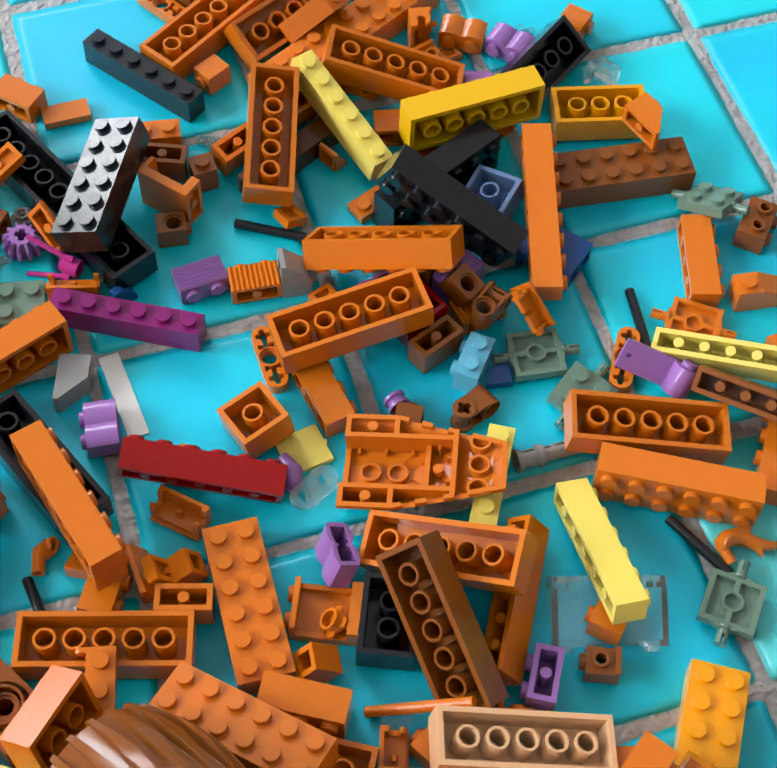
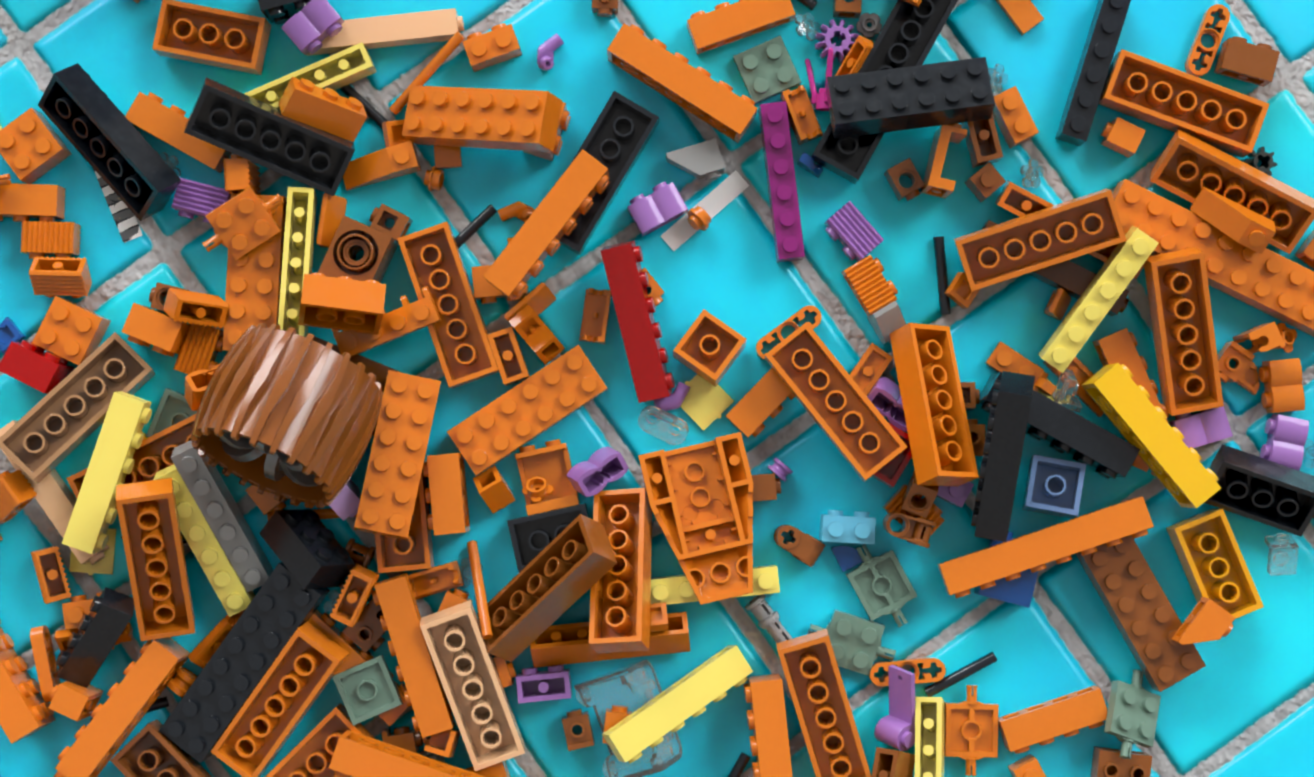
camera: 70 degrees right, 30 degrees up
(128, 396) = (698, 218): none -> orange plate
(435, 344) = (849, 485): dark orange brick -> none
(532, 307) = (925, 563): orange hinge -> none

